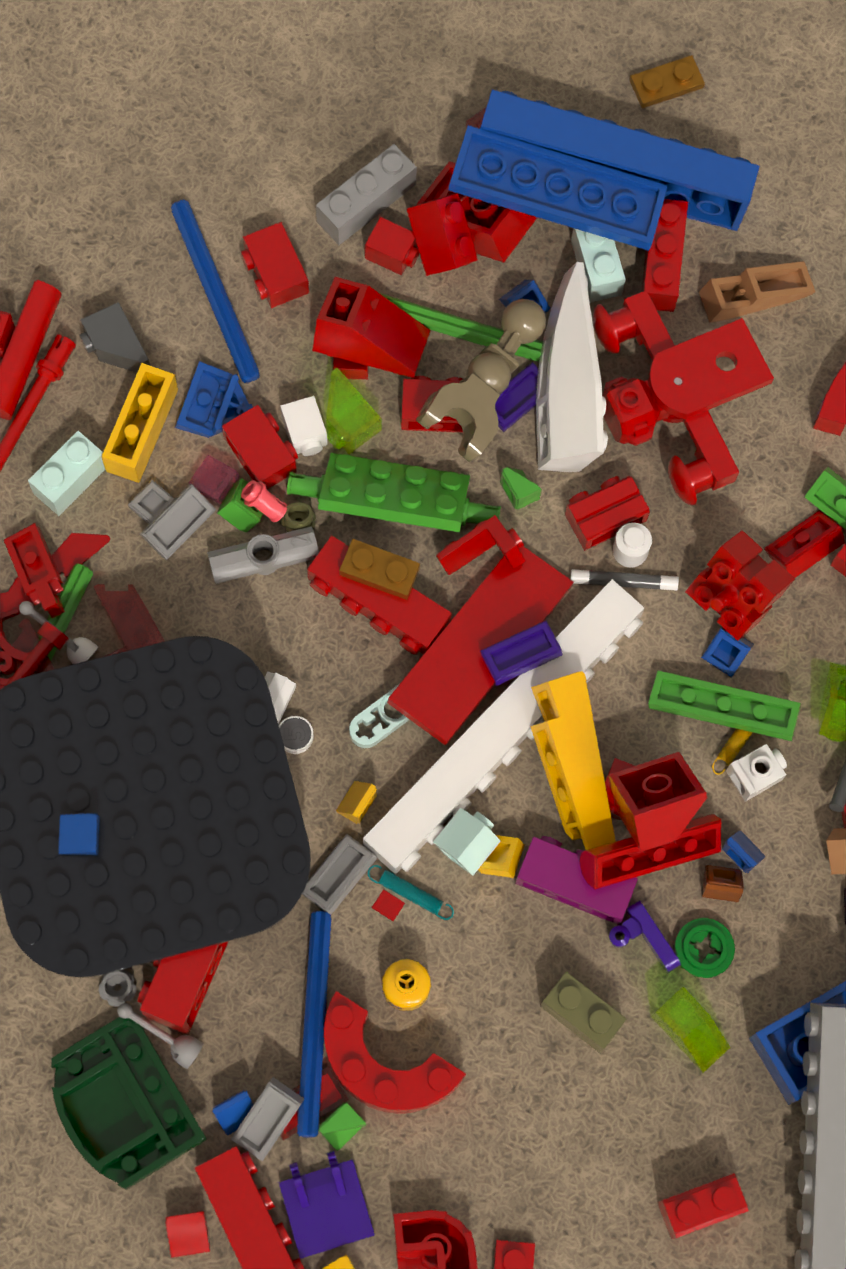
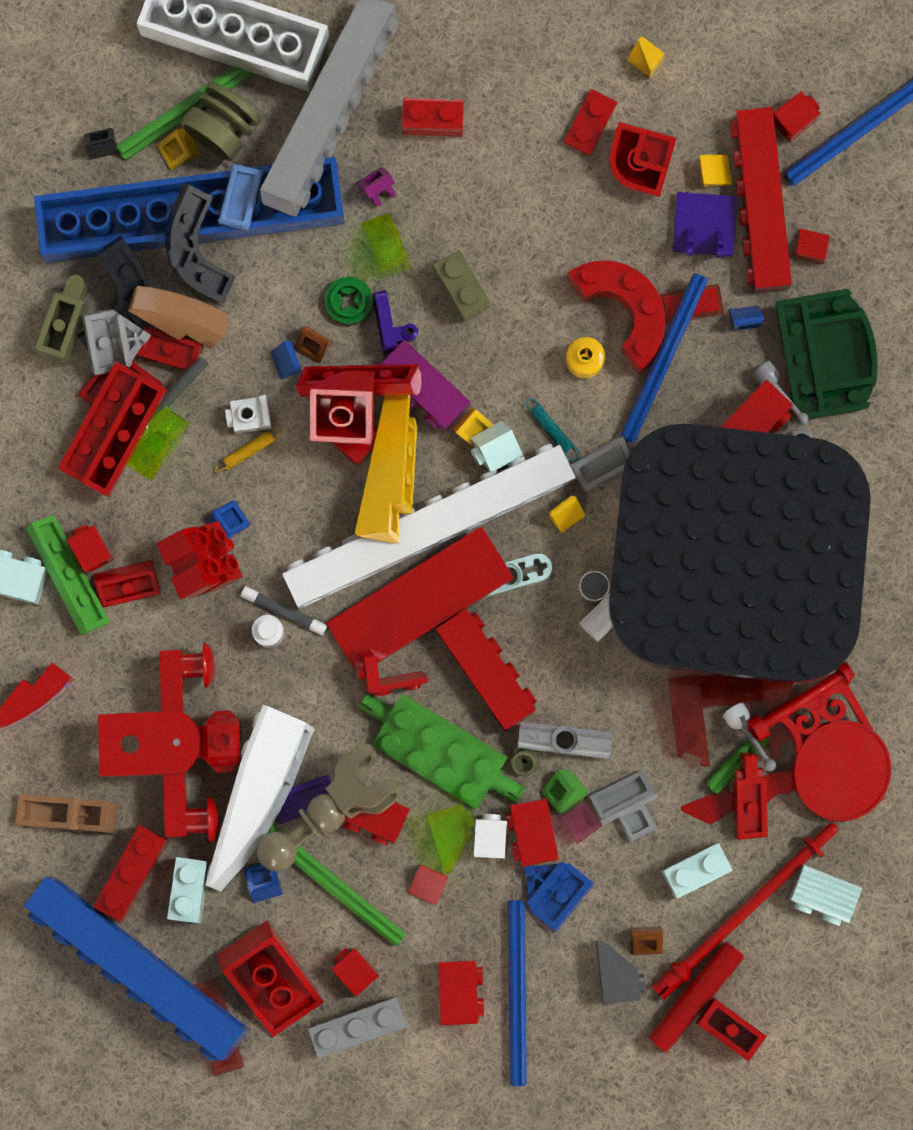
camera: 155 degrees left, 10 degrees up
(79, 834) = (795, 540): blue slope -> none
(98, 391) = (646, 940): none -> dark orange slope
(140, 423) = (623, 890): yellow brick -> none
(257, 496) = (552, 787): coral pin -> none
(267, 1119) = (725, 300): light grey tile -> none
(341, 1126) = (672, 277): bright green slope -> none
(368, 329) = (404, 896): red slope -> none
(379, 569) = (479, 684): pearl gold plate -> none
(388, 905) = (573, 427): red window -> none
(442, 234) = (311, 958): red brick -> none
(518, 488) = (336, 719): bright green slope -> none
(521, 653) = (395, 573): dark purple tile -> none
(558, 188) = (200, 953): blue plate -> none
(605, 511) = (275, 669): red brick -> none
(667, 81) = (54, 1039): pearl gold plate -> none
(724, 705) = (252, 474): bright green plate -> none
(733, 1098) = (375, 183): none -> magenta tile

